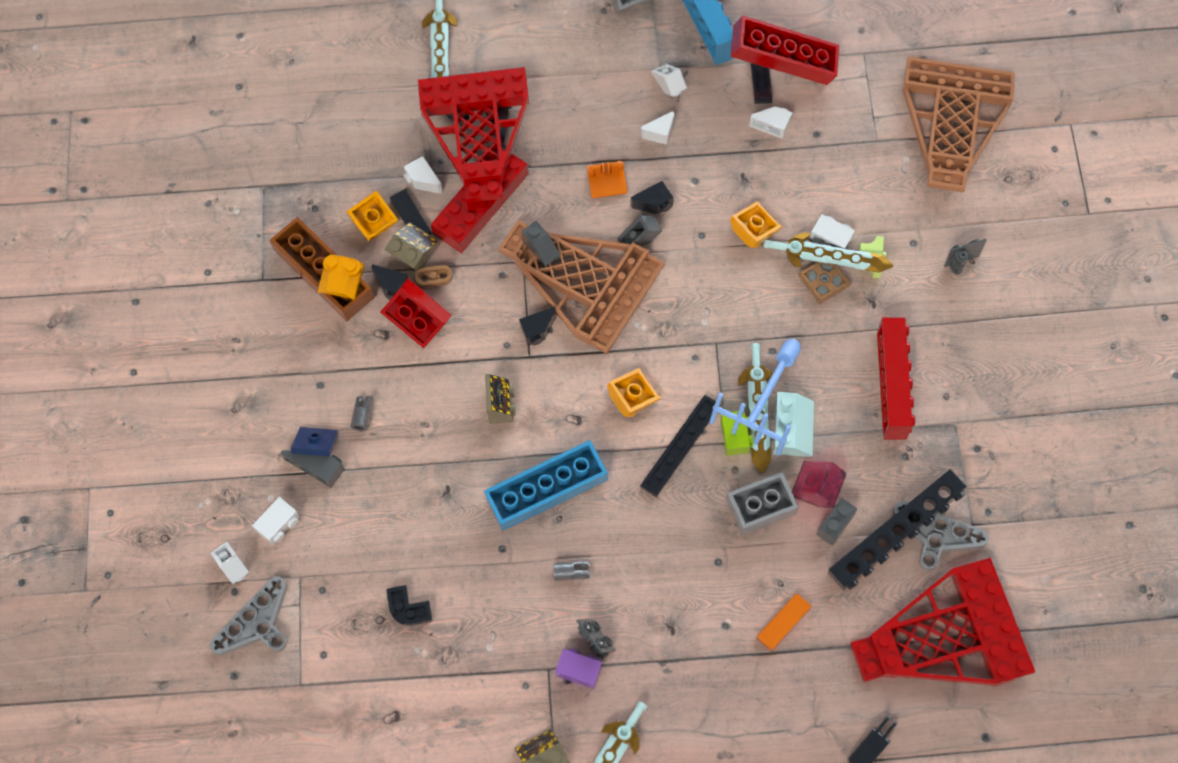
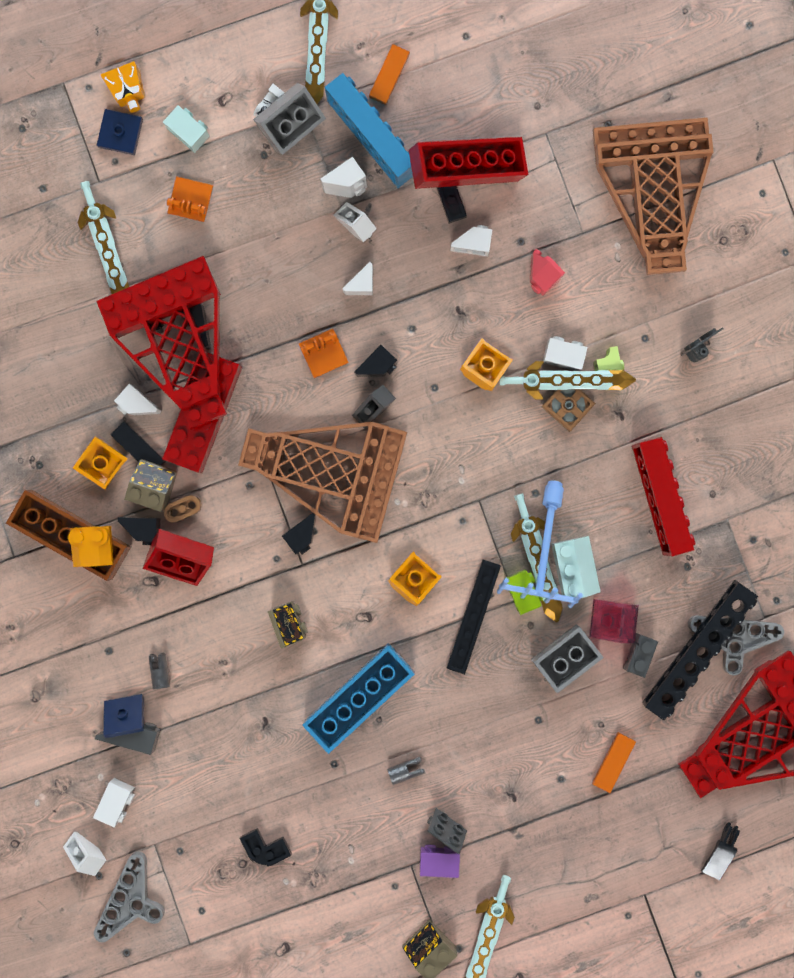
camera: 15 degrees left, 20 degrees up
(526, 28) = (189, 199): none -> orange hinge
(540, 243) = (279, 453): dark grey slope -> none
(669, 42) = (345, 180): none -> white slope
(832, 161) = (544, 273): none -> coral slope

